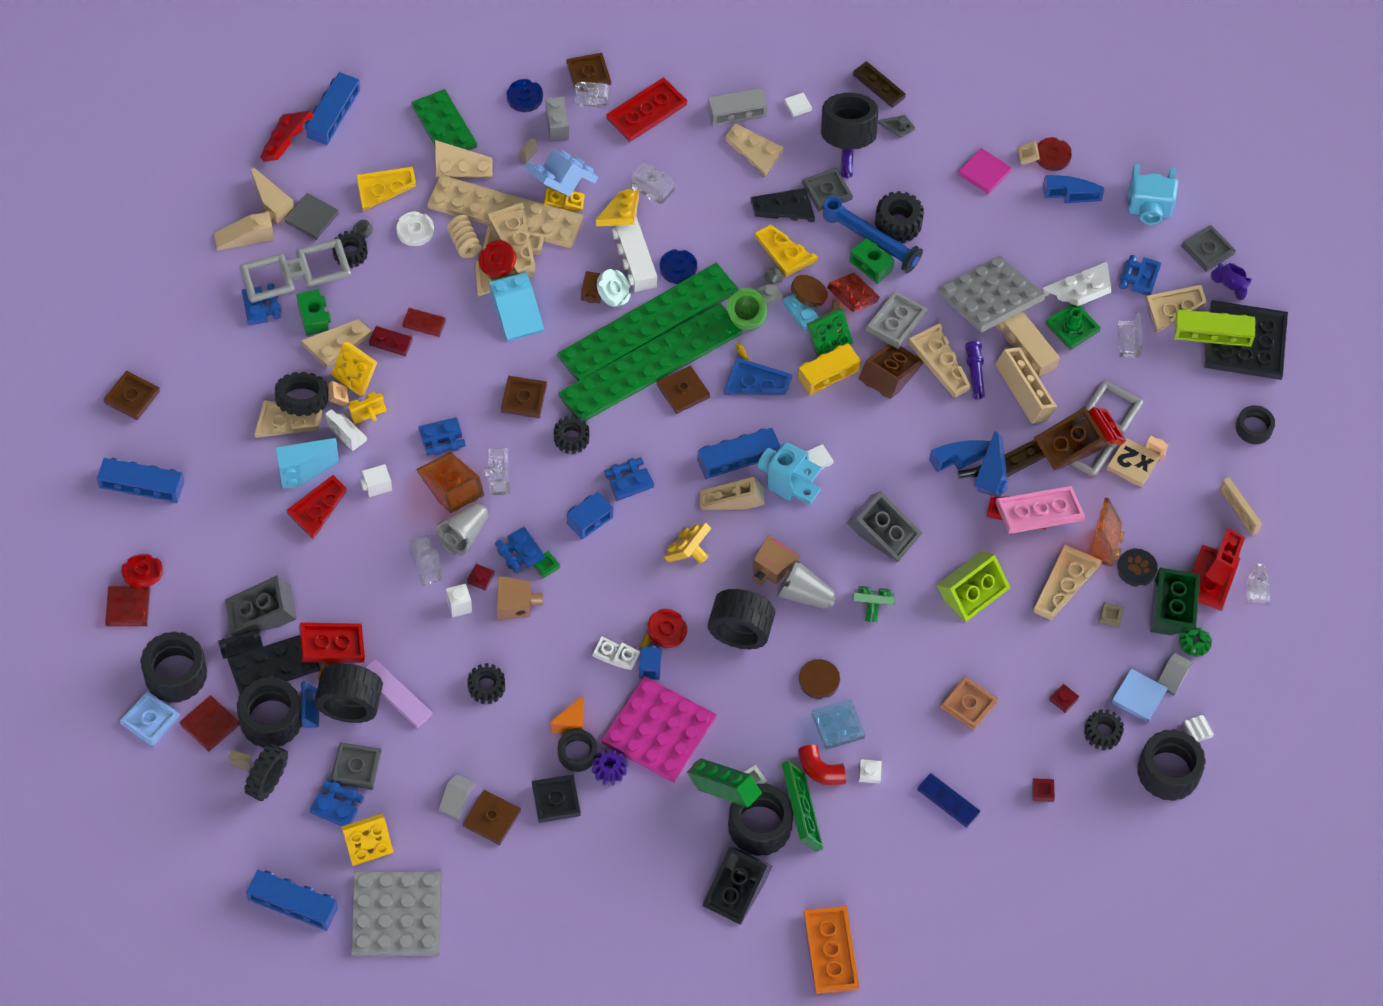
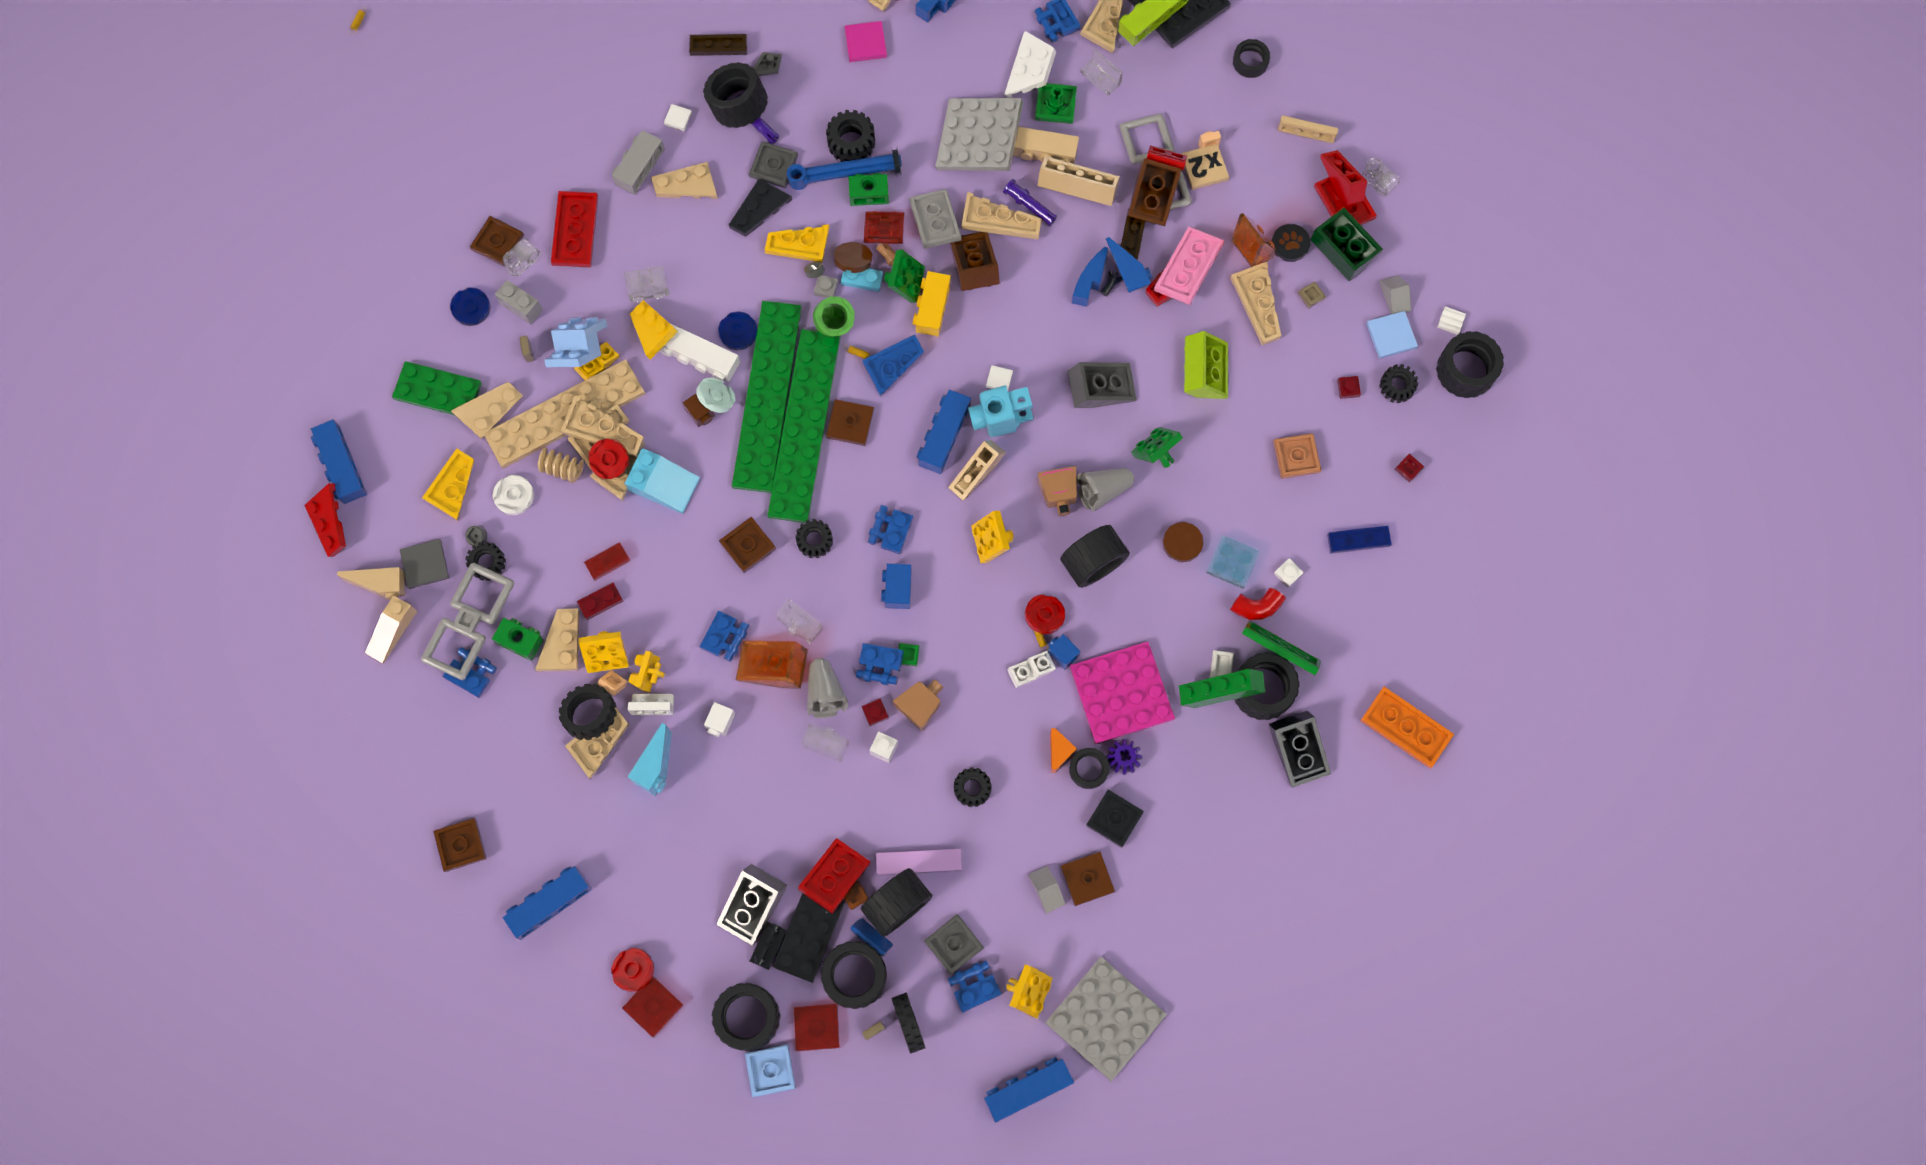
camera: 45 degrees left, 15 degrees up
(316, 506) = (699, 784): red wing -> none
(1201, 648) = (1392, 261): green gear -> none

